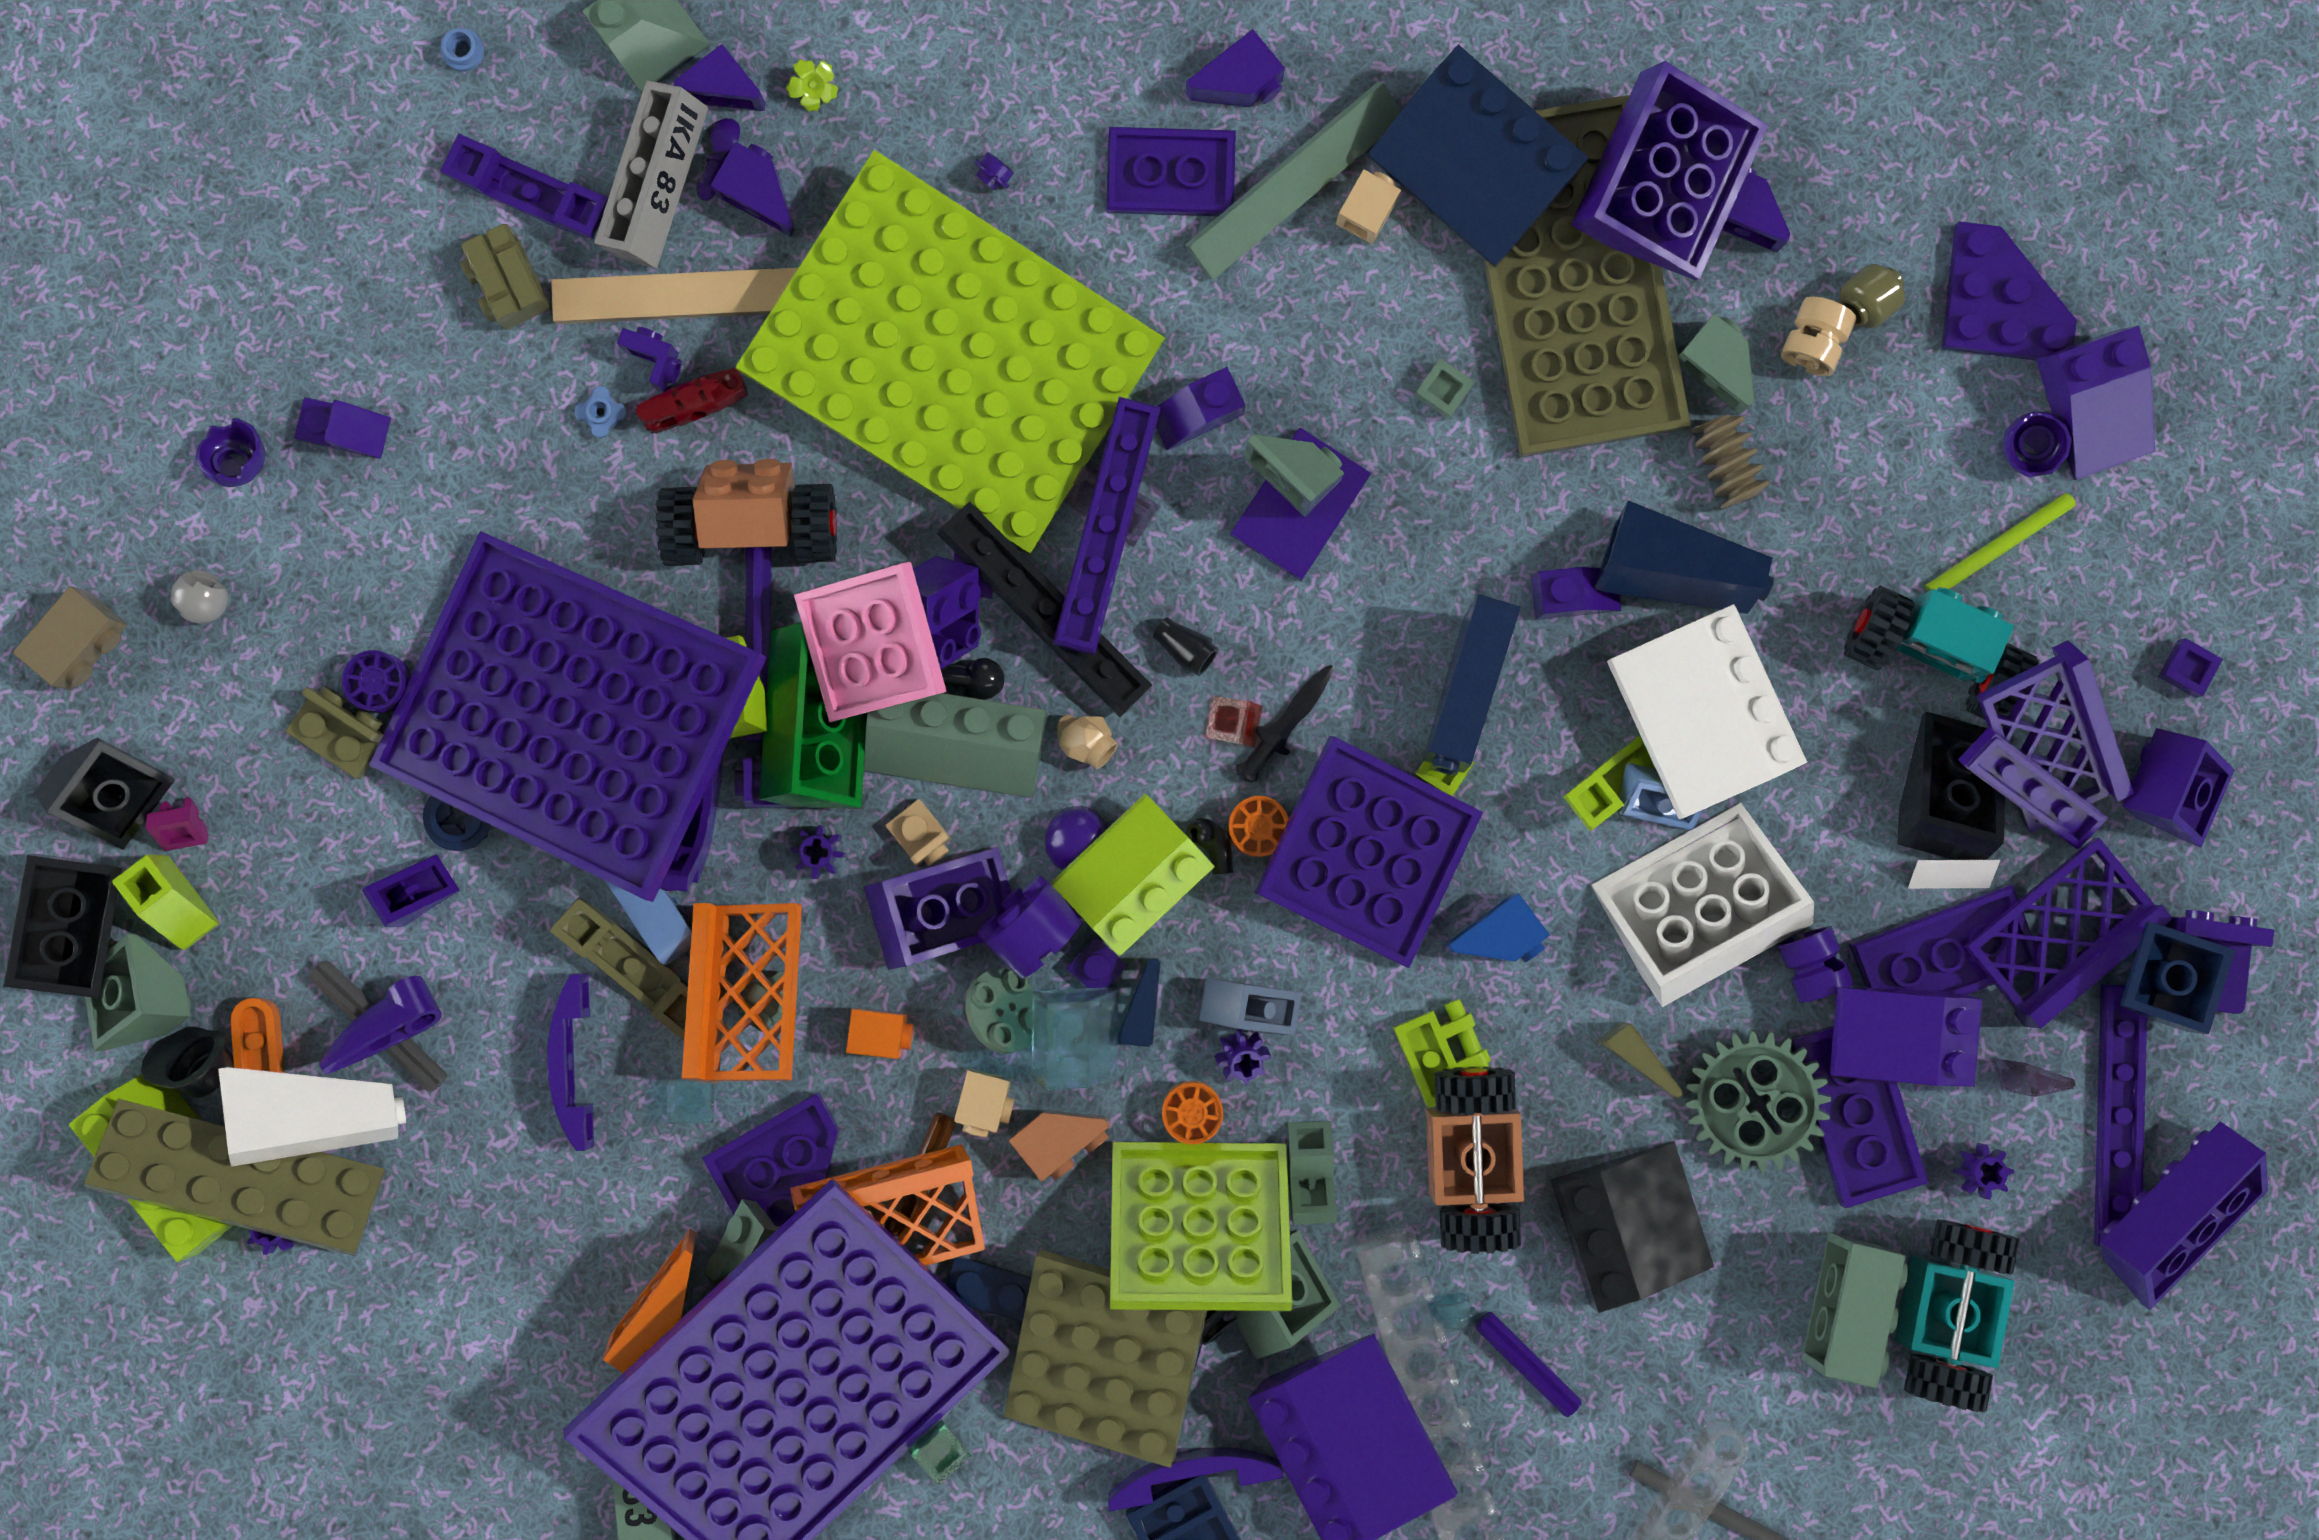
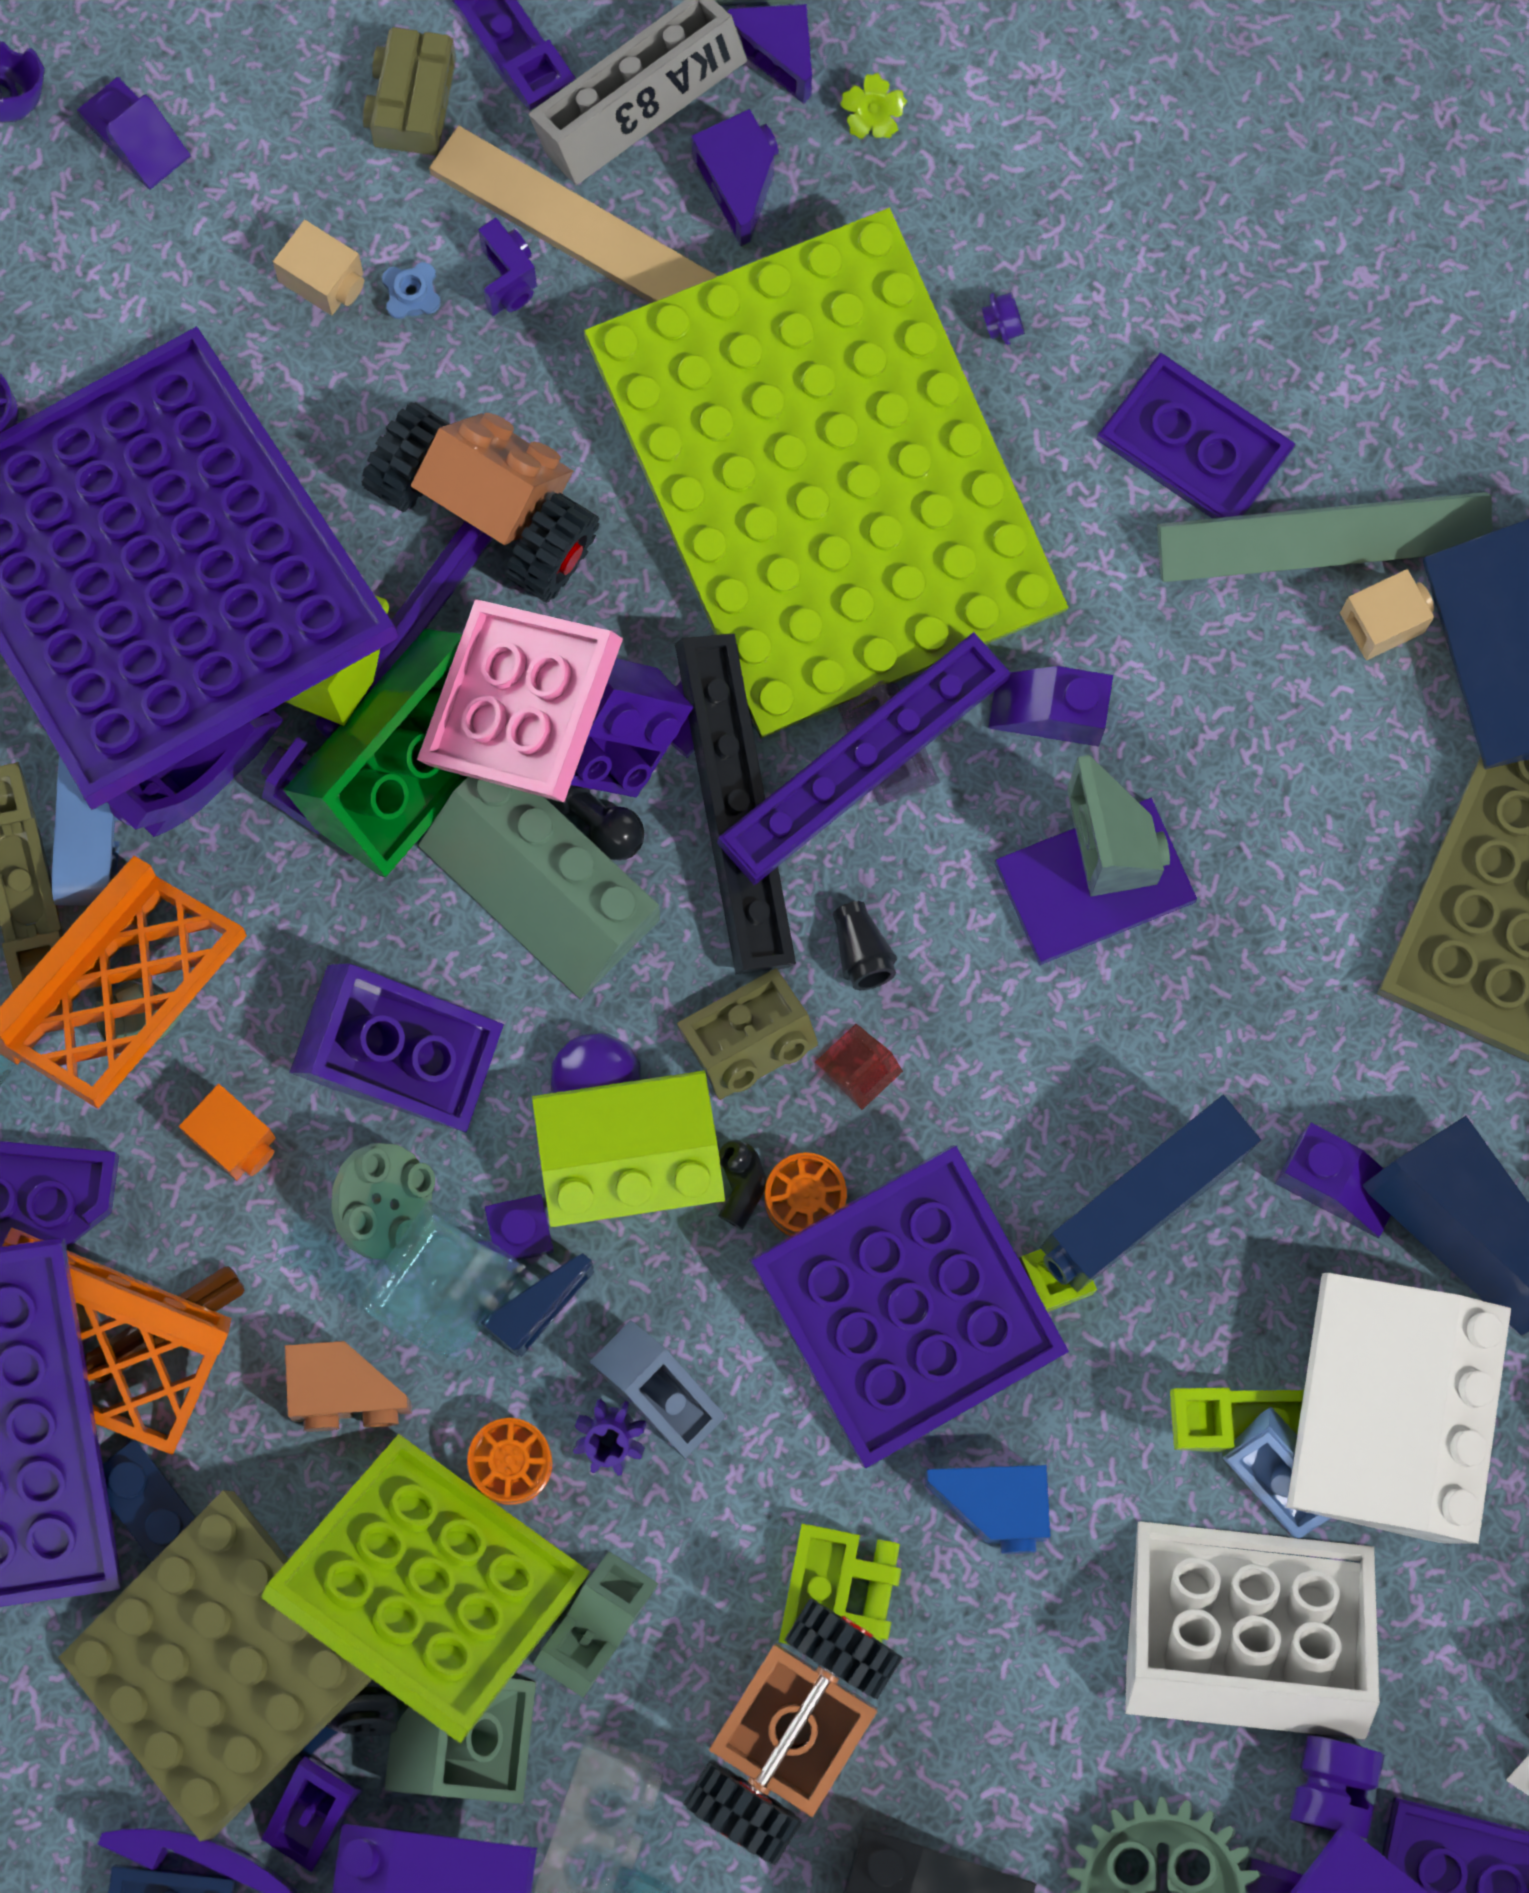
camera: 35 degrees right, 10 degrees down
(531, 438) = (319, 268): none -> tan brick
(692, 400) = (514, 340): dark red hinge -> none
(723, 137) = (738, 100): dark purple piece -> none
(824, 862) = (304, 910): dark purple gear -> none
(920, 834) = (429, 952): tan bracket -> none
(984, 1103) = (288, 1289): tan brick -> none
(1030, 926) = (476, 1125): dark purple brick -> none
(1086, 739) = (682, 973): tan rock -> none
(1153, 749) = (749, 1033): none -> olive bracket
(1221, 1399) = (310, 1812): none -> dark purple slope
(1239, 75) = (1337, 388): dark purple slope -> none
(1275, 737) = (896, 1112): black sword -> none
(1444, 388) = (1340, 862): sand green plate -> none
(1631, 1048) = (1058, 1741): olive slope -> none

